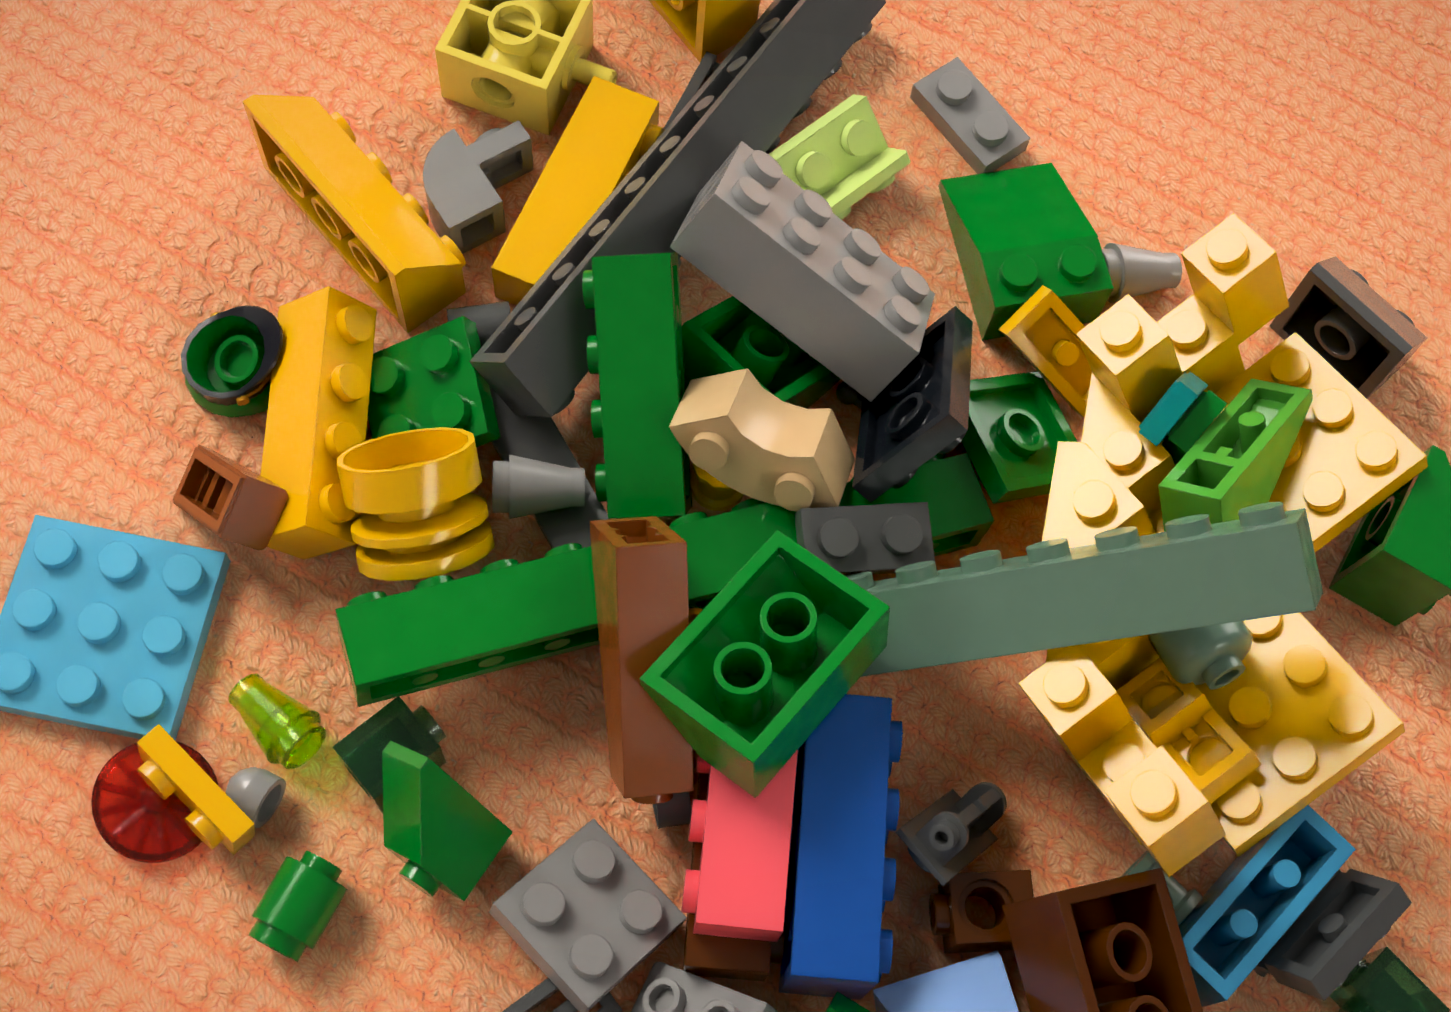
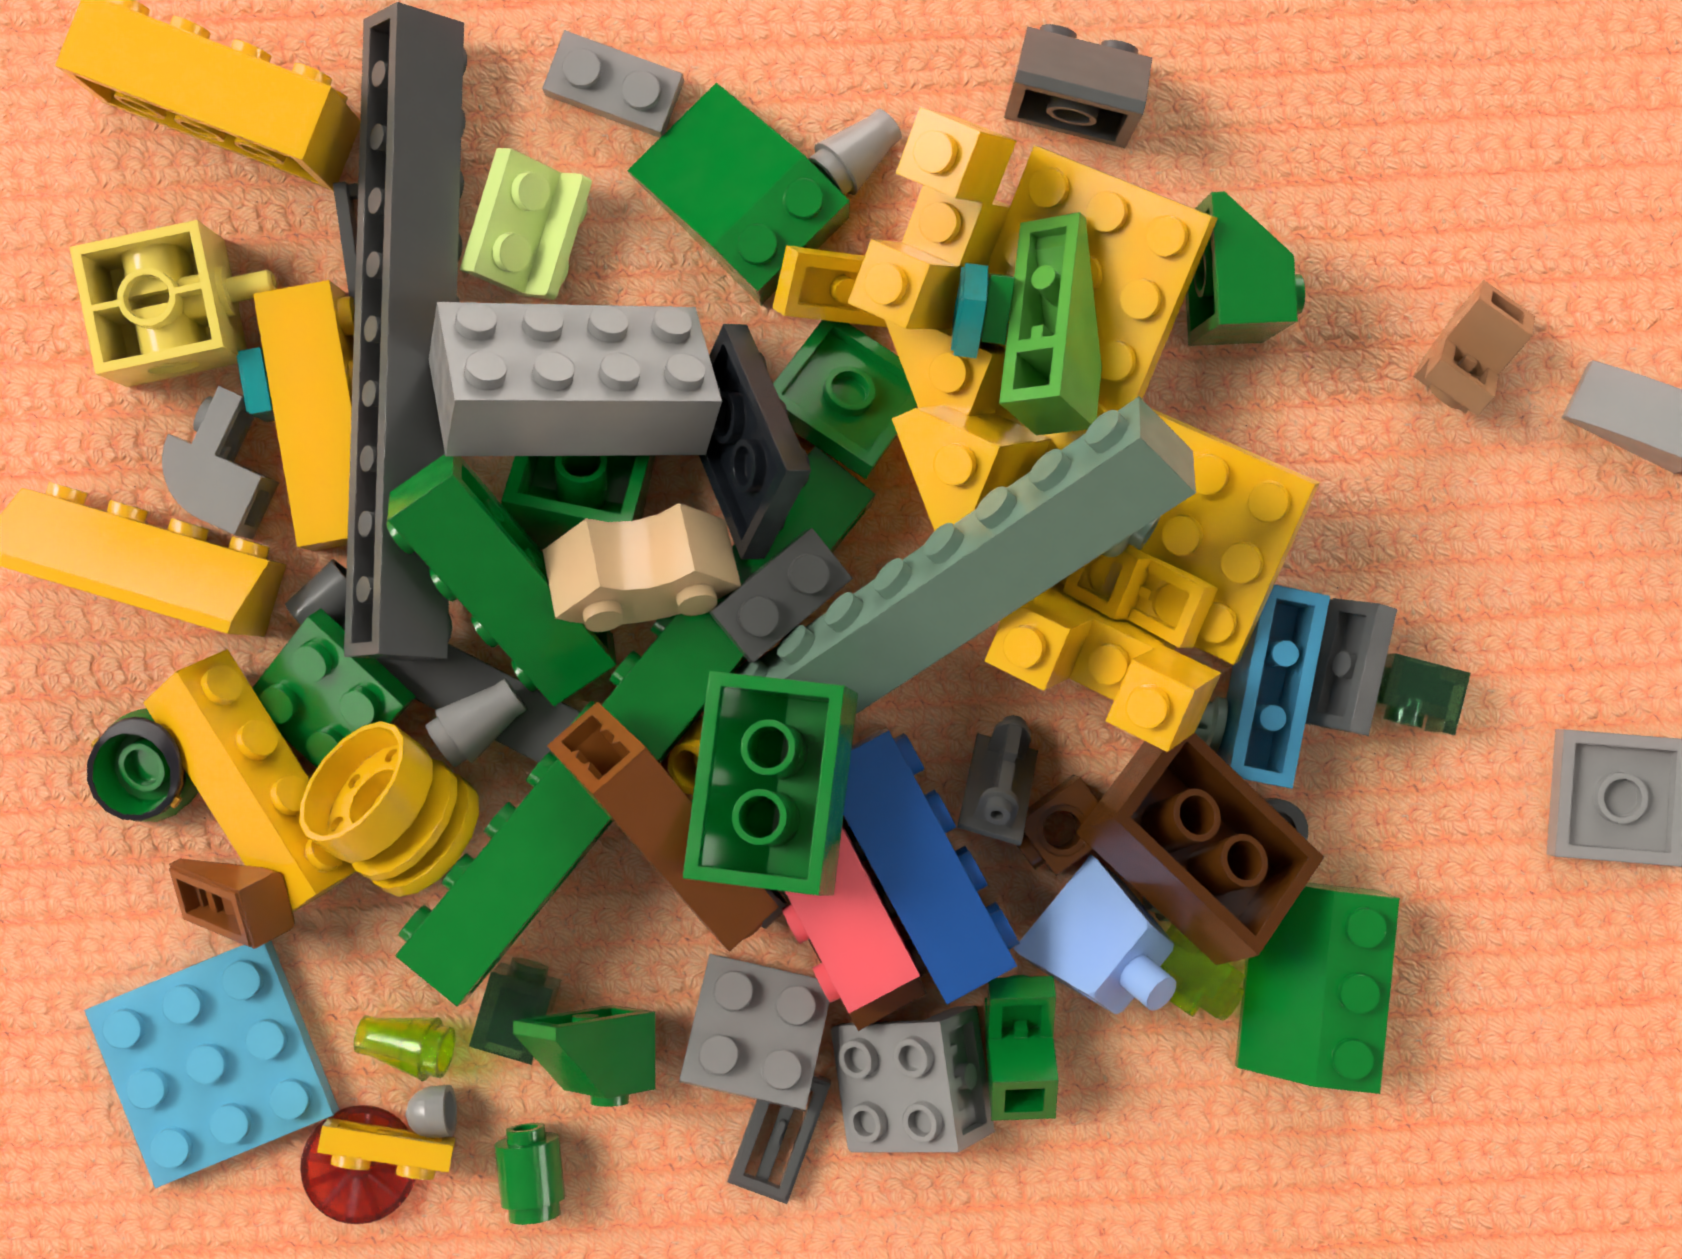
camera: 25 degrees left, 20 degrees up
(545, 141) = (255, 384): none -> teal tile

